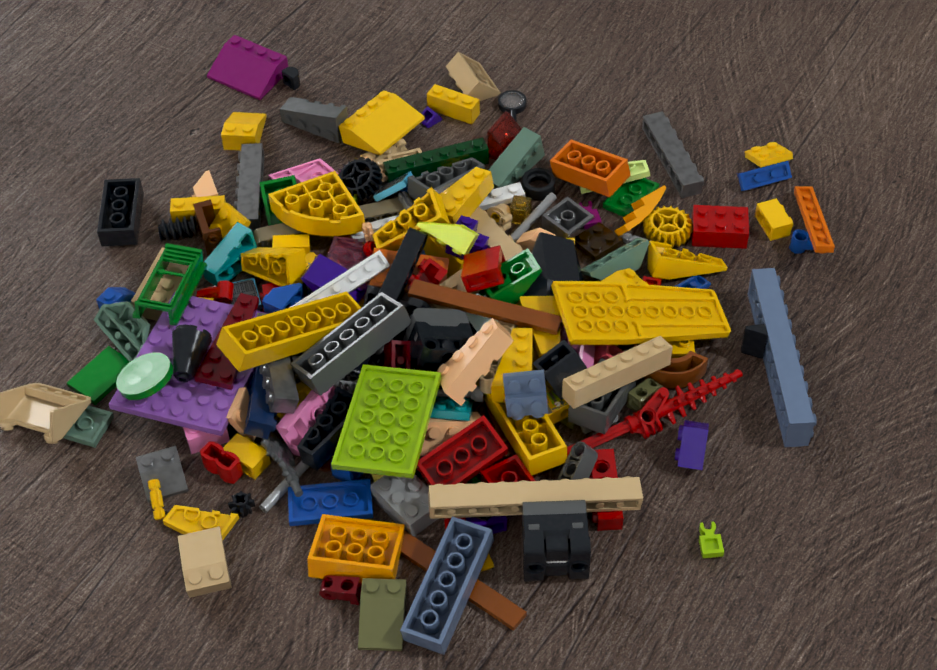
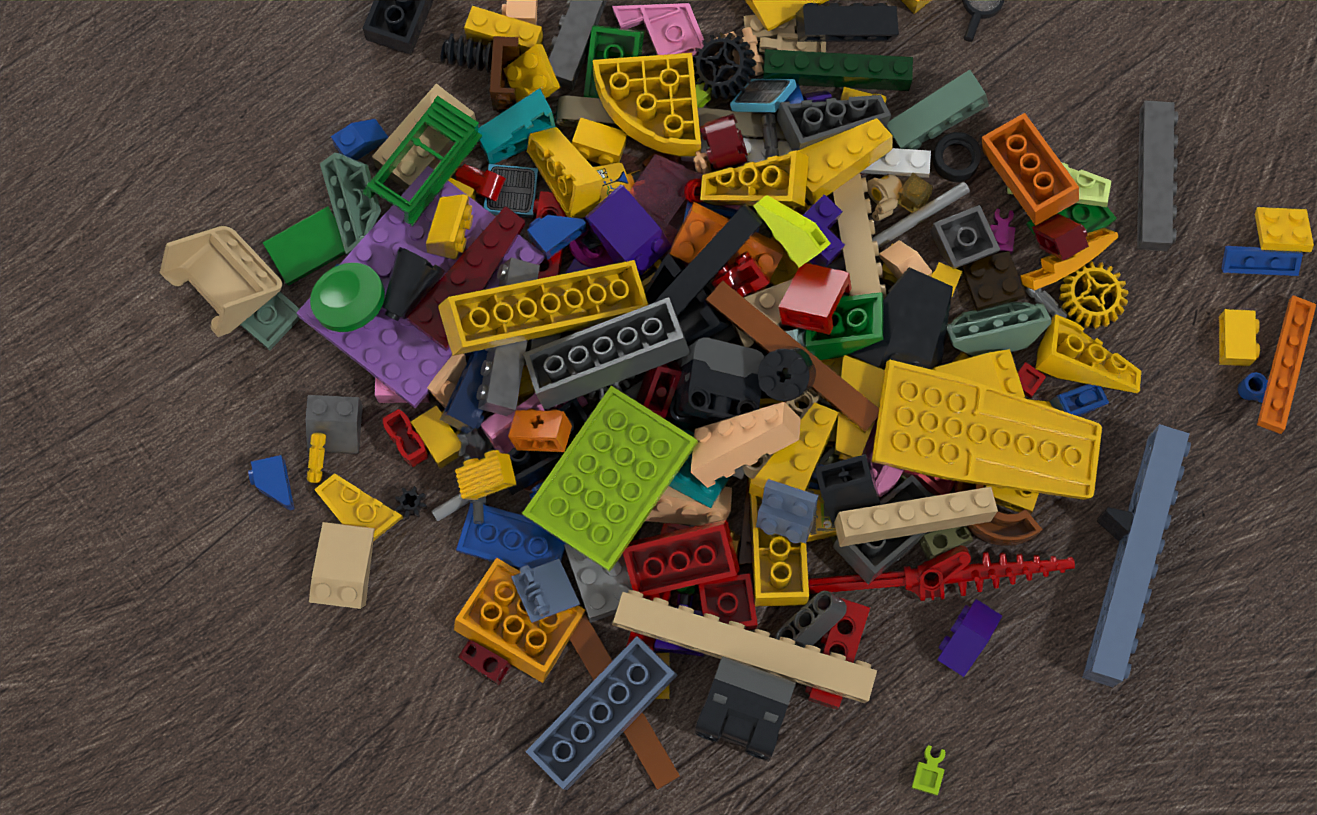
camera: 20 degrees right, 25 degrees up
(127, 526) = (272, 480): none -> blue slope
(205, 309) = (449, 226): none -> yellow slope
(293, 453) = (485, 475): none -> yellow brick
(322, 409) = (540, 430): none -> orange brick
(351, 278) = (627, 248): white tile -> none
(367, 519) = (544, 590): none -> sand blue hinge
(378, 211) = (725, 142): none -> dark red brick
(382, 614) = (517, 714): olive slope -> none
(430, 134) = (847, 23): none -> black brick
(482, 301) = (799, 366): none -> black brick
(501, 135) = (941, 65): clear red slope -> none
(629, 195) = (1061, 236): none -> dark red brick
(720, 226) = (1161, 322): red brick -> none

